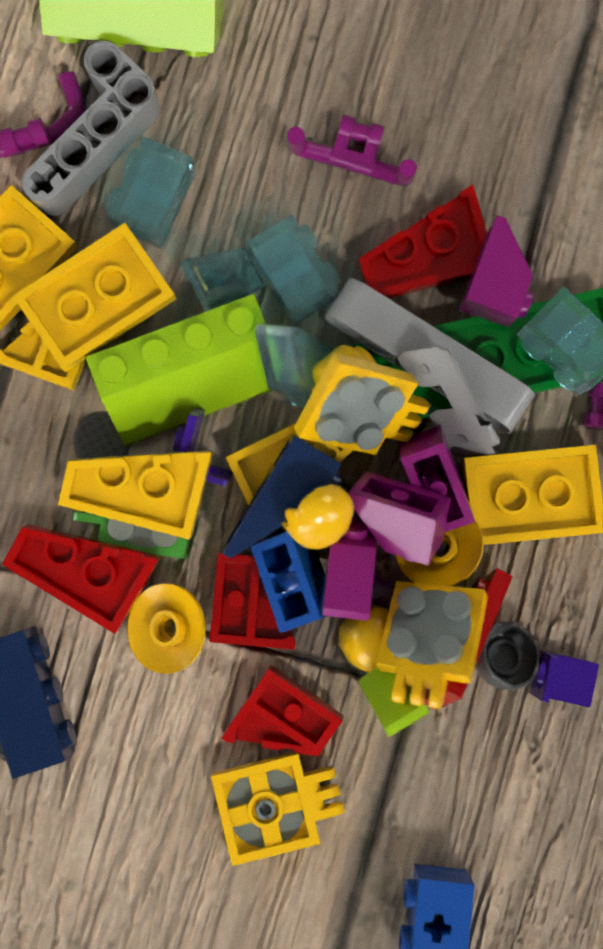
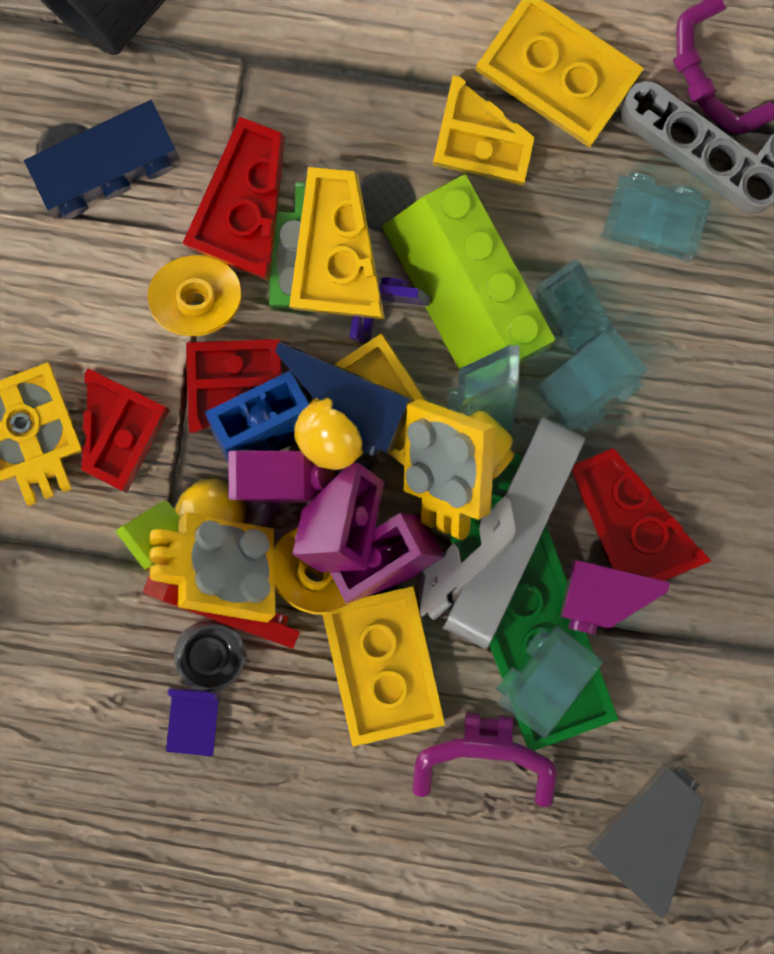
camera: 80 degrees right, 0 degrees up
(94, 297) = (531, 174): yellow plate -> none
(347, 159) = (725, 417): magenta piece -> none

